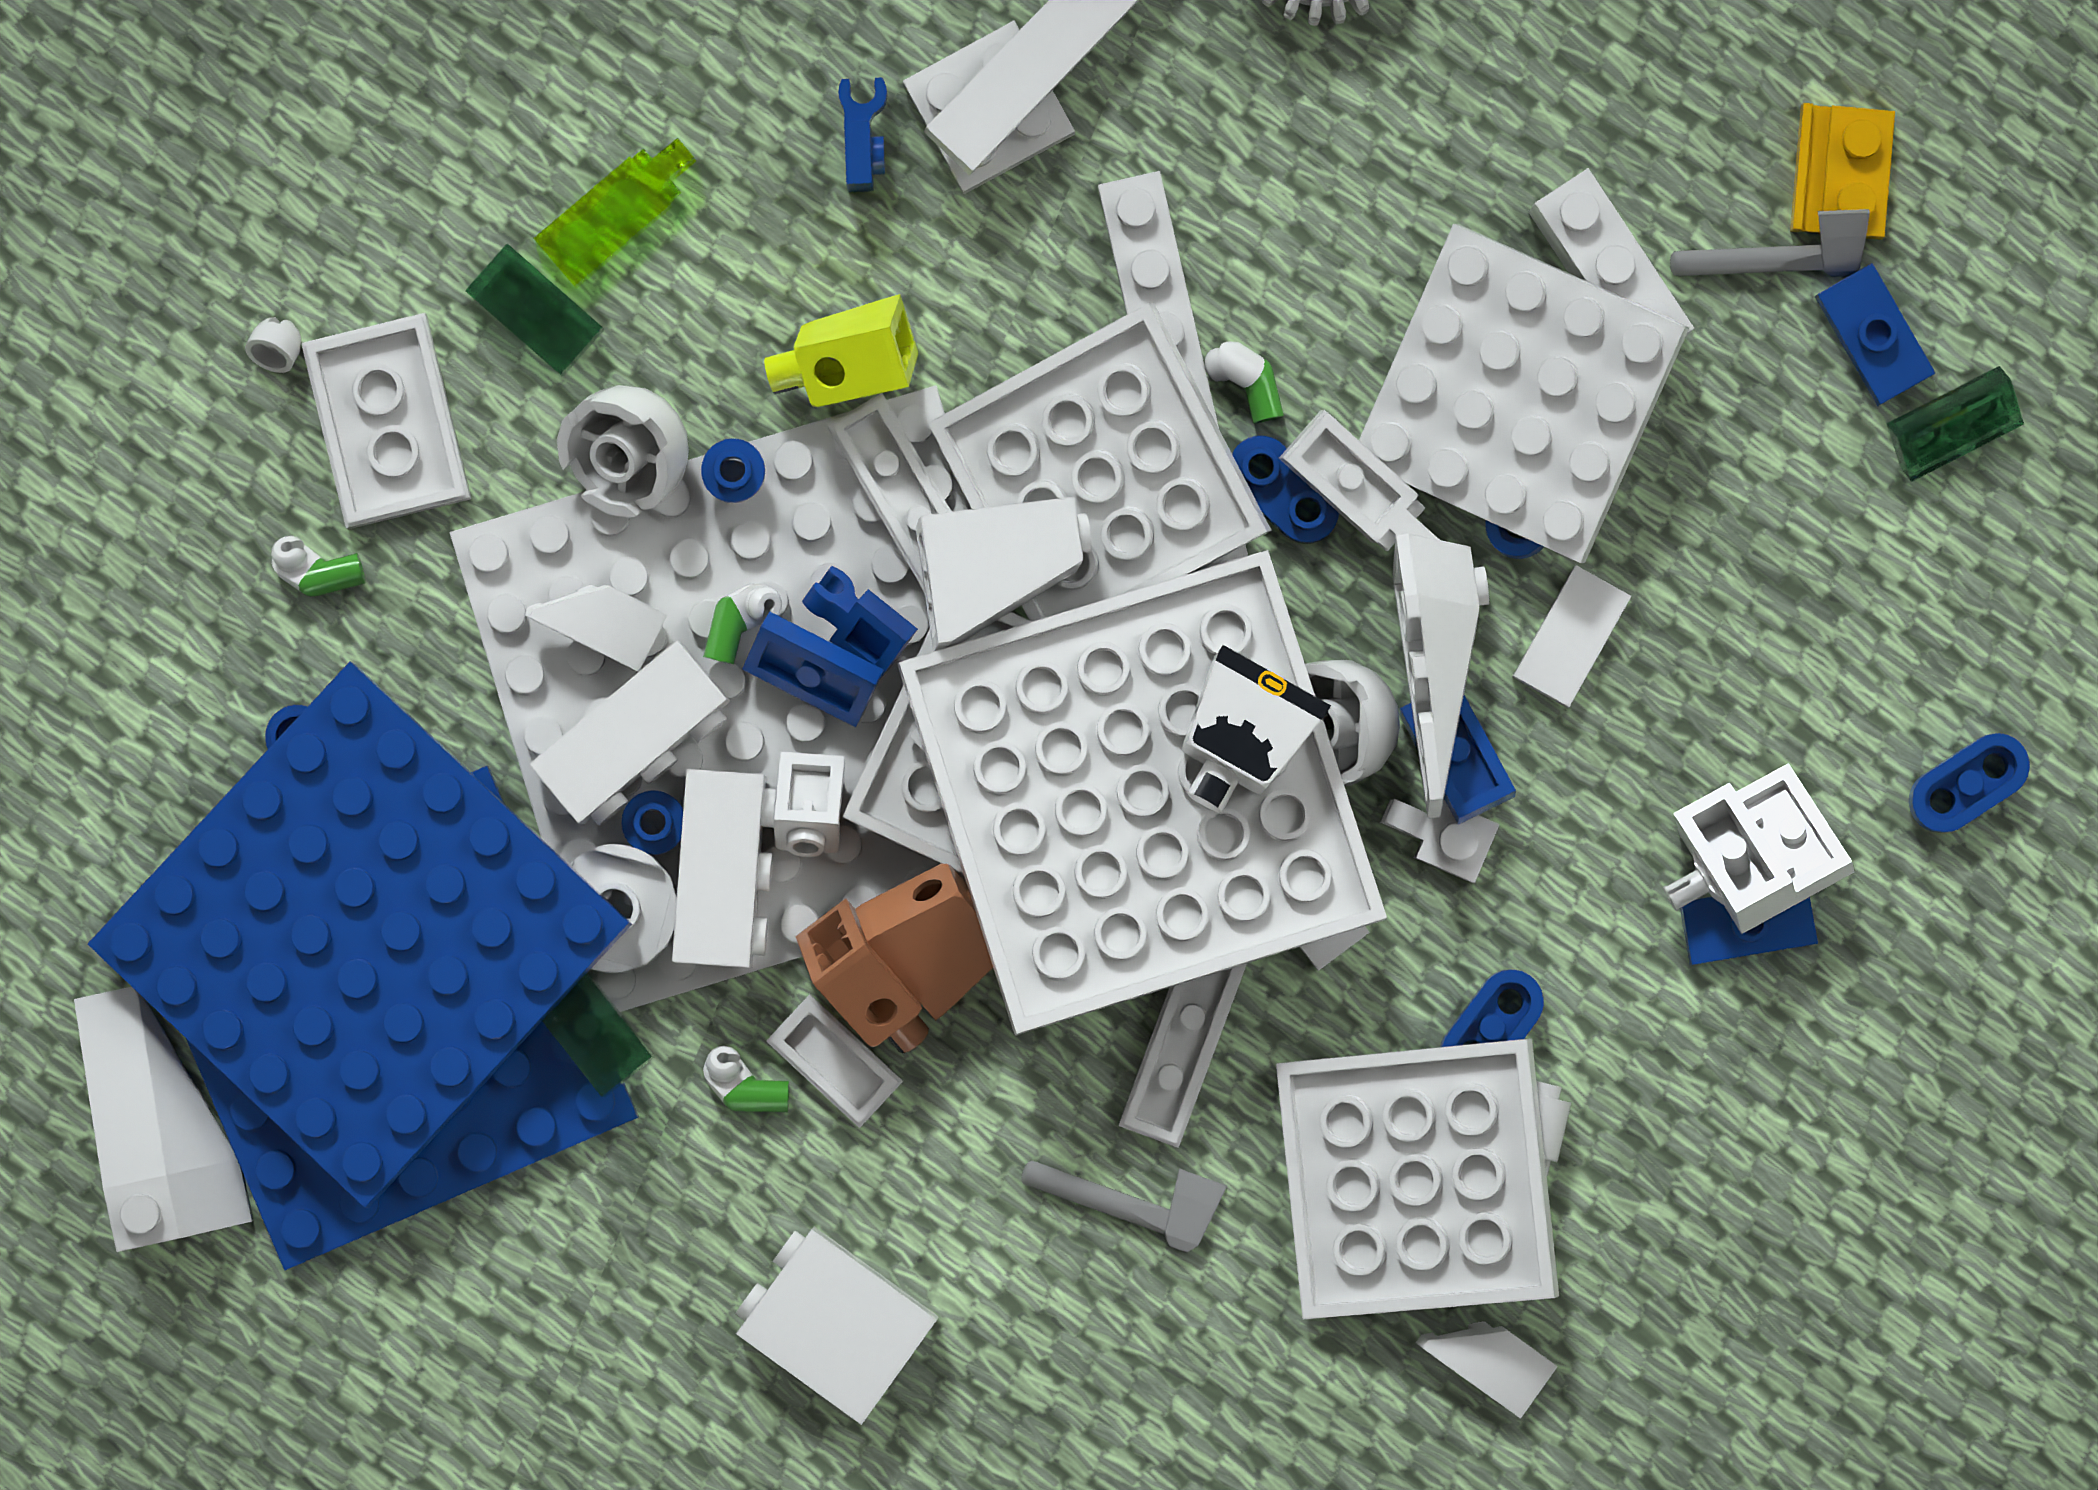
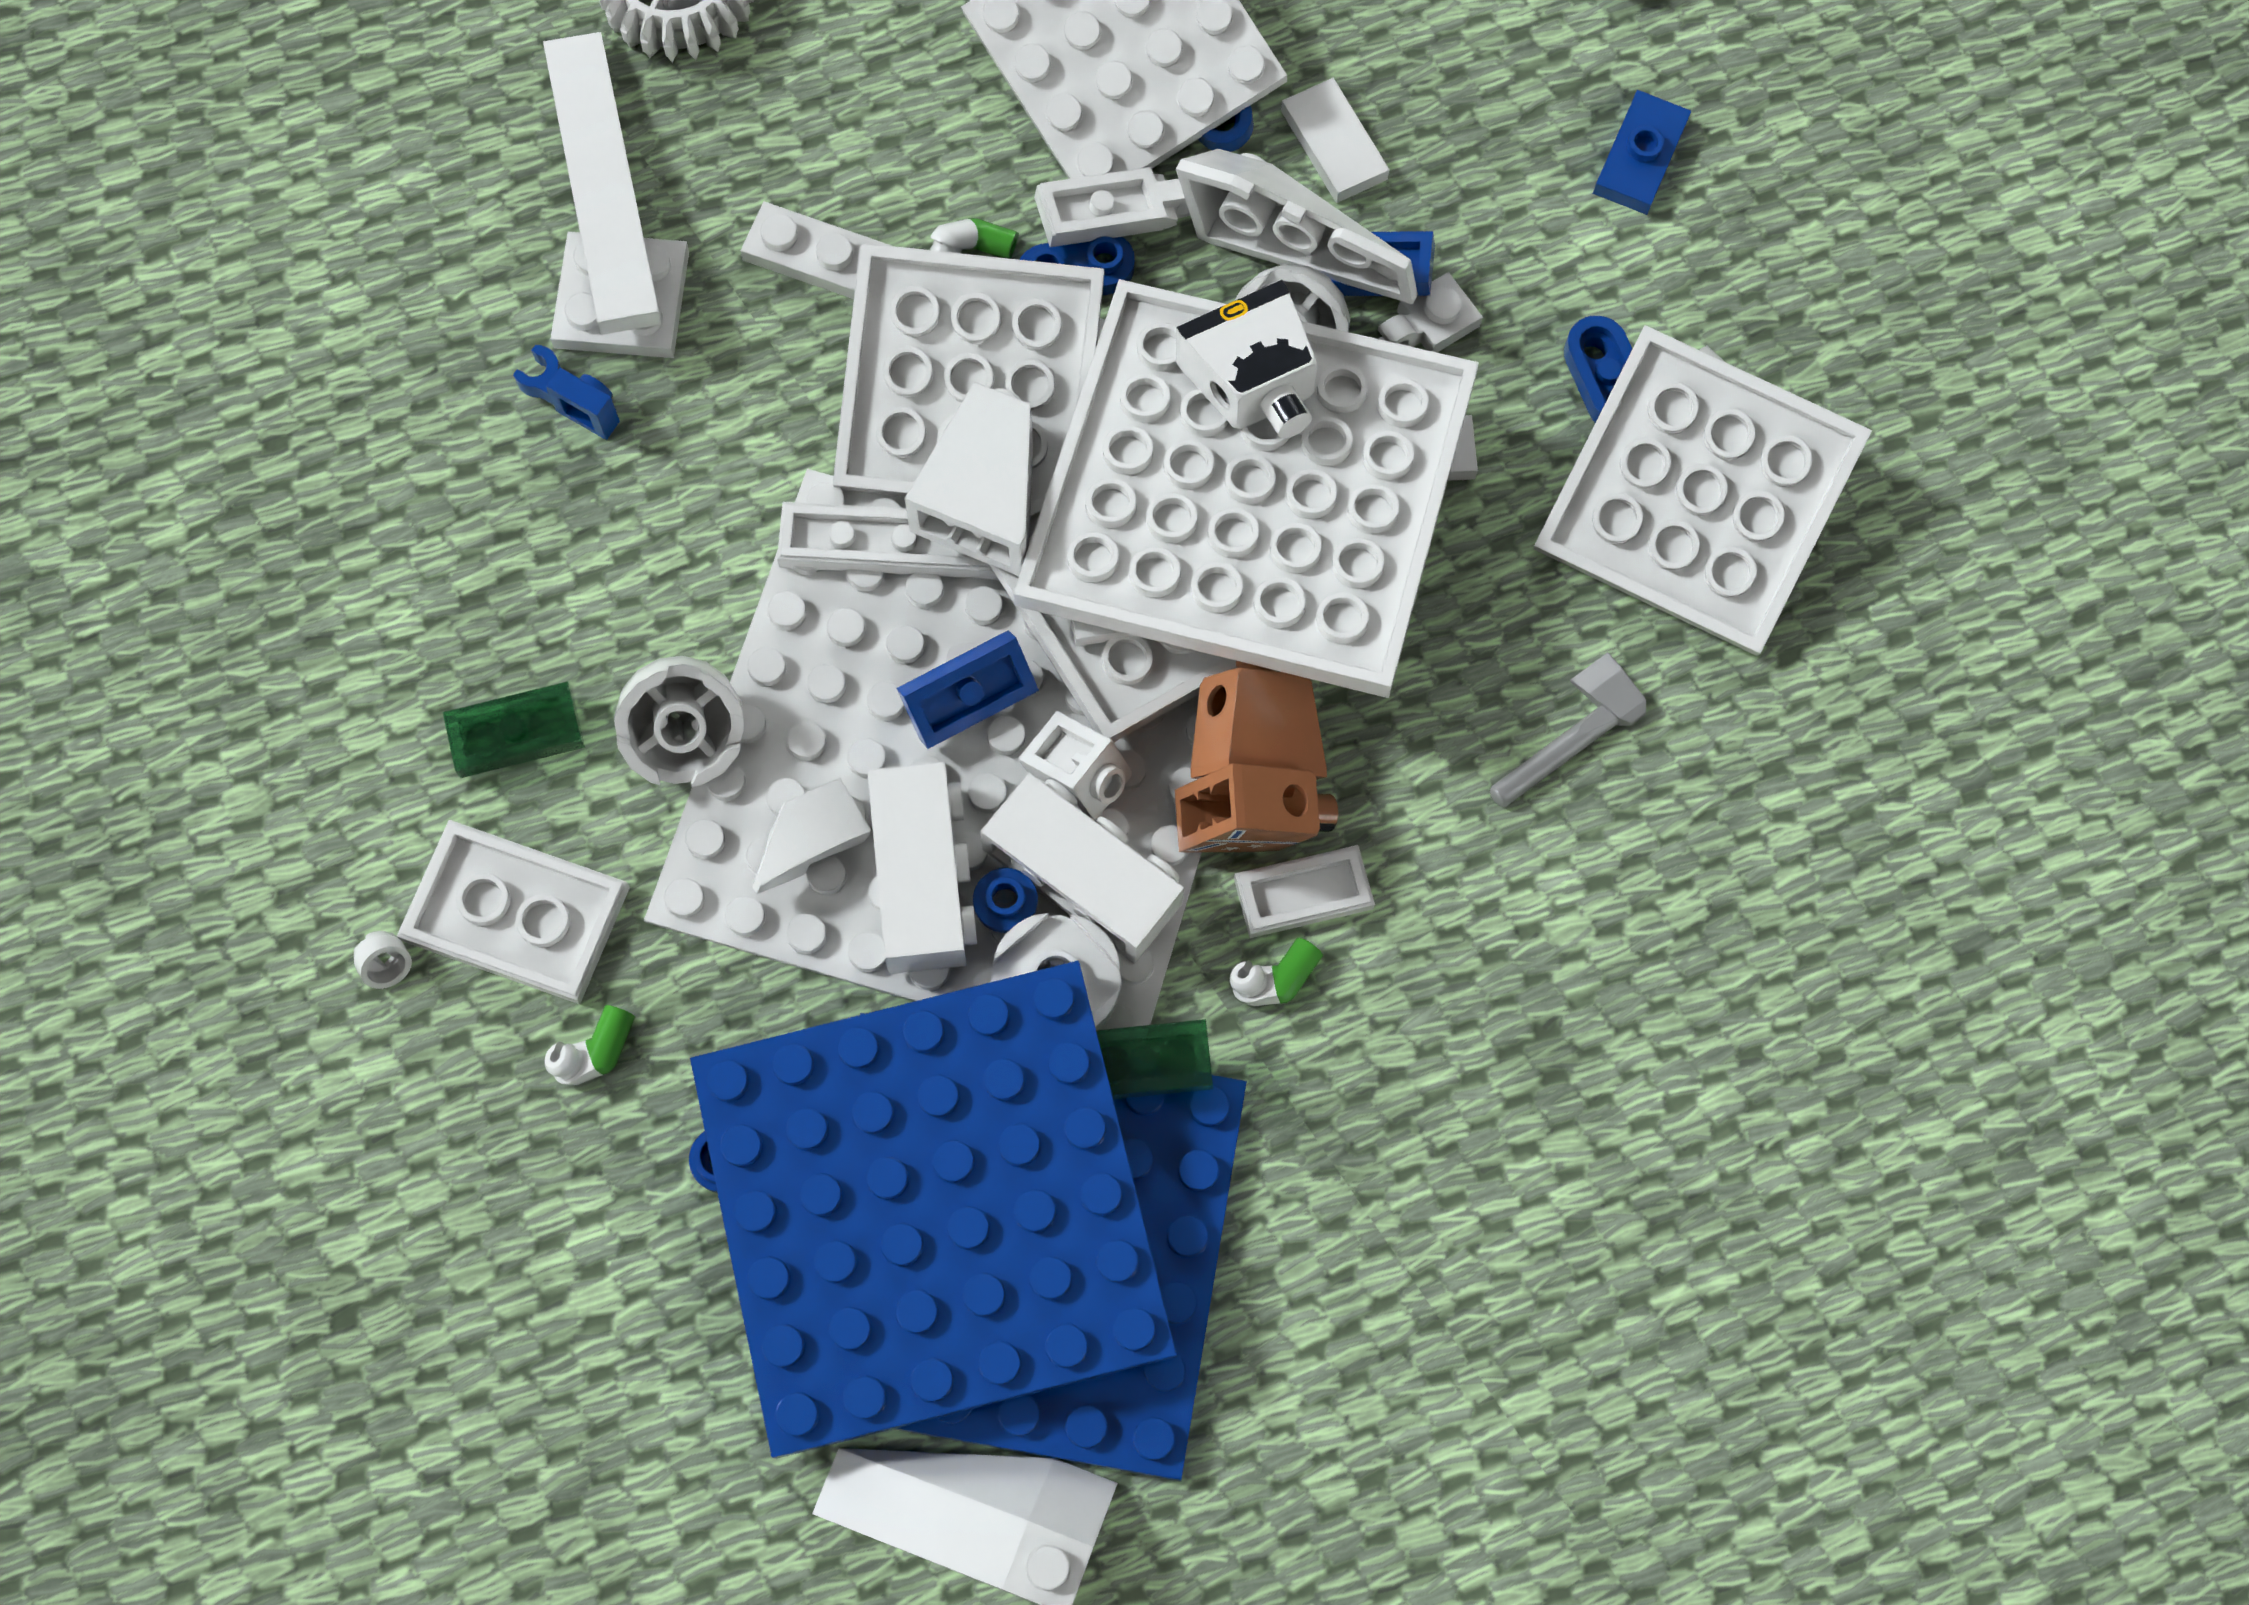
camera: 60 degrees left, 15 degrees down
(614, 212) = (484, 620): clear neon green hinge -> none
(733, 491) = (764, 668): blue plate -> none
(738, 614) = (880, 723): arm -> none
(834, 1323) = (1532, 1026): white brick -> none
(863, 624) = (961, 625): blue plate -> none
(871, 351) = (745, 479): neon yellow torso -> none
(1179, 1056) = (1479, 618): white tile -> none
(1493, 1363) = (1882, 535): white slope -> none
(1758, 849) = (1593, 99): white plate -> none

